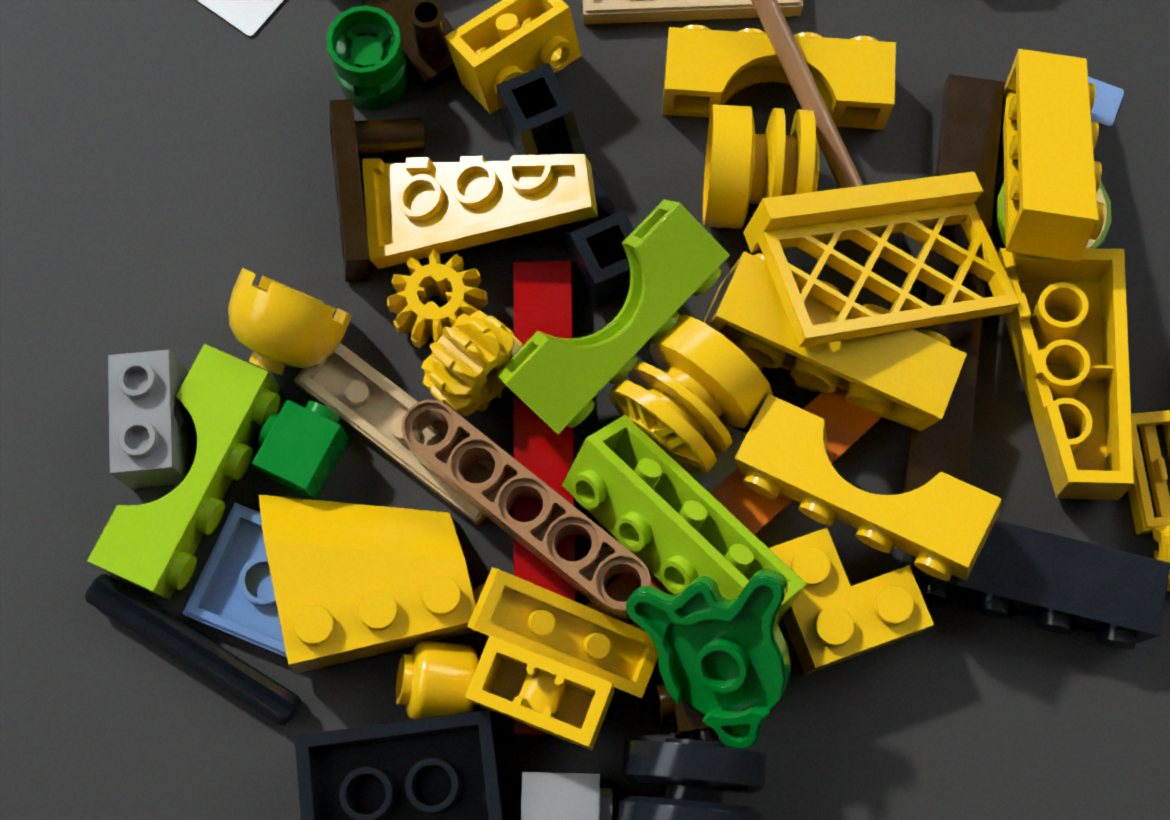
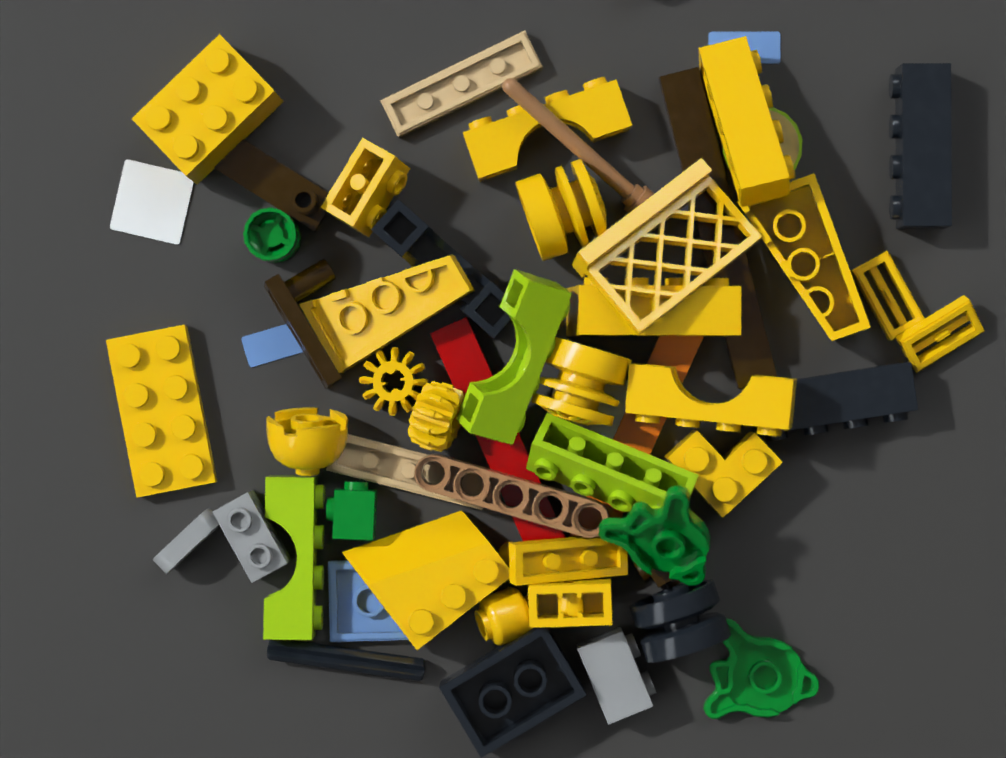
camera: 20 degrees left, 15 degrees up
(57, 393) = (186, 541): none -> light grey beam
(120, 221) = (161, 410): none -> yellow plate
(302, 200) = (270, 345): none -> medium blue sticker

